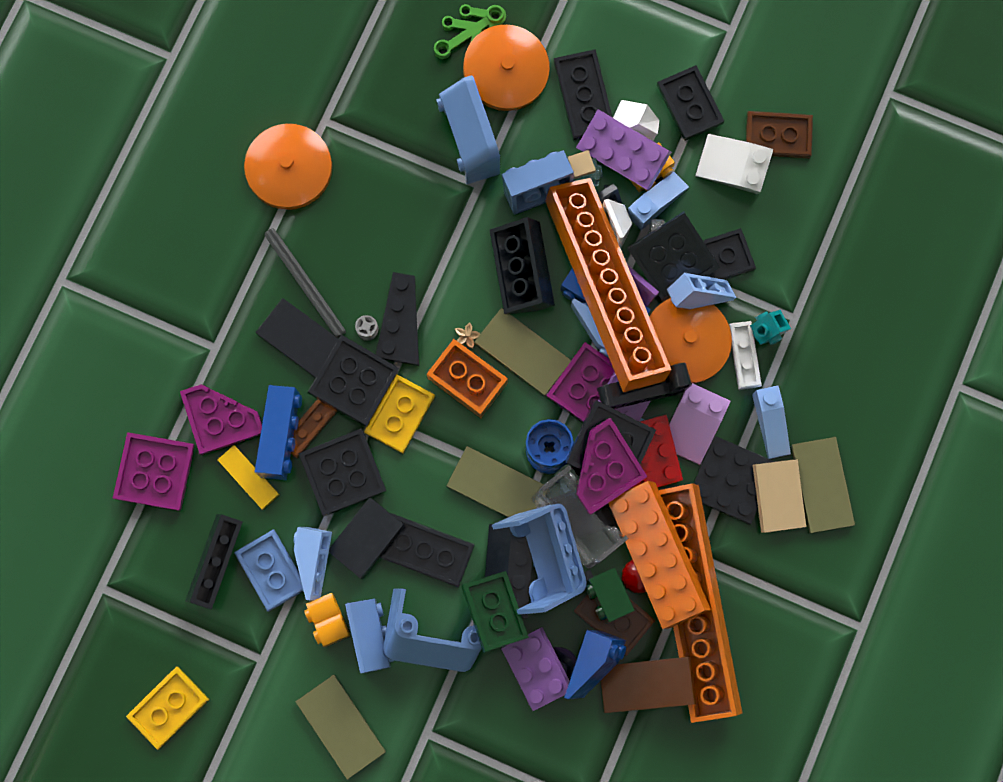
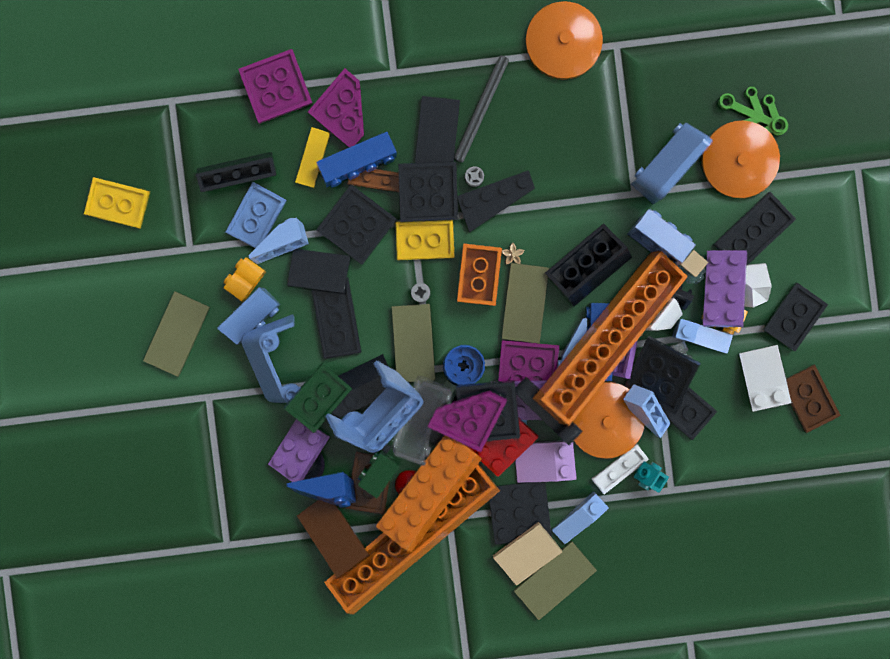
camera: 60 degrees right, 10 degrees up
(448, 452) = (420, 292): none -> light grey wheel

